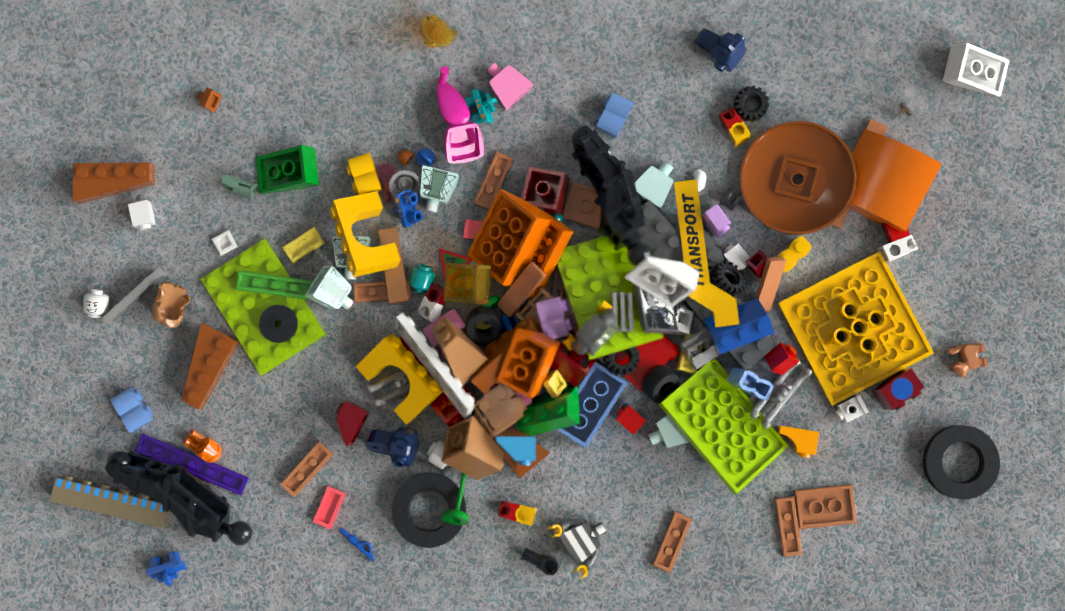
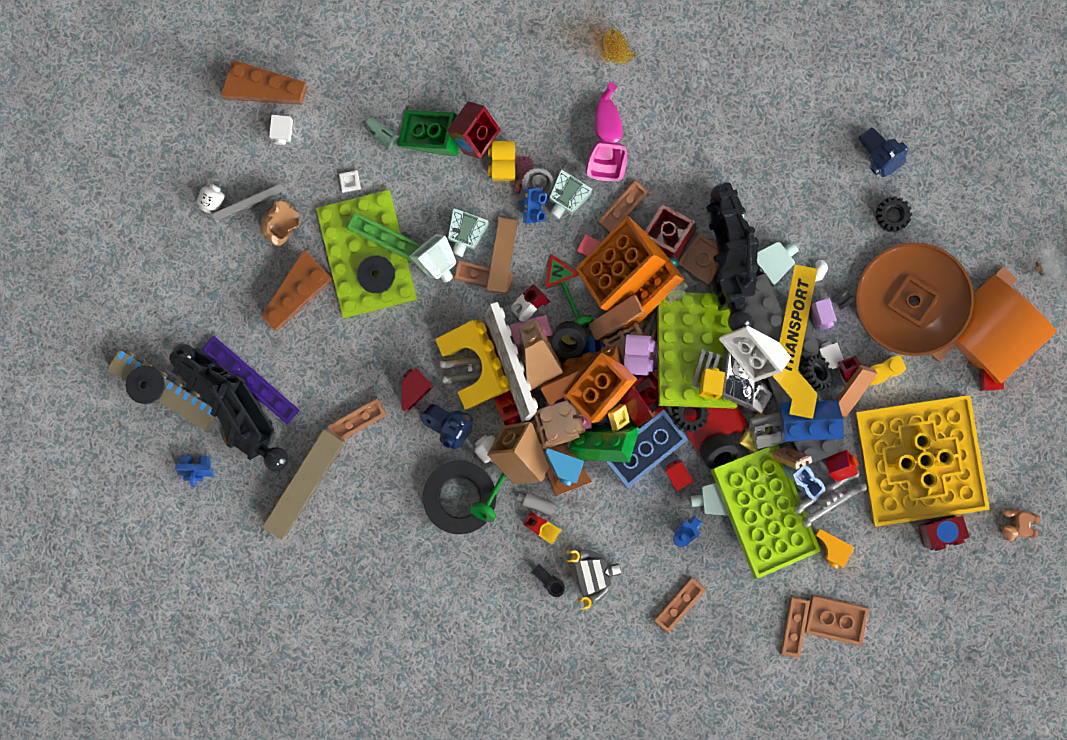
camera: 20 degrees right, 0 degrees up
(100, 499) = (155, 386): none -> black plate
(131, 409) = (211, 309): medium blue brick -> none
(203, 447) = (267, 368): orange piece -> none
(209, 99) = (379, 41): dark orange tile -> none
(275, 547) = (304, 483): none -> dark tan brick
(303, 245) = (423, 208): light yellow plate -> none
(326, 154) = (474, 129): none -> dark red brick
(329, 507) = (366, 463): coral tile -> none
(359, 545) = (380, 505): blue hand -> none
(360, 258) = (474, 238): yellow arch -> none
(404, 155) = (546, 155): dark orange hinge -> none
(421, 278) = (525, 276): teal head -> none
(425, 157) = (566, 163): blue tile -> none
(467, 283) = (567, 295): clear yellow brick -> none
(484, 105) = (639, 132): teal hips -> none
(504, 491) = (537, 503): none -> light grey cylinder
(508, 85) = (667, 120): bright pink torso -> none
(571, 247) = (677, 293): none -> clear plate
(594, 332) = (673, 380): dark grey torso -> none
(614, 115) = (758, 182): medium blue brick -> none
(632, 323) = (711, 383): none -> yellow brick
(655, 471) = (686, 532): none -> blue hips
(731, 367) = (792, 457): none -> nougat tile
(734, 126) = (870, 231): leg -> none
(843, 409) = (884, 533): white brick -> none
(898, 248) = (988, 398): white leg -> none
(988, 462) = (1008, 621): black tyre -> none

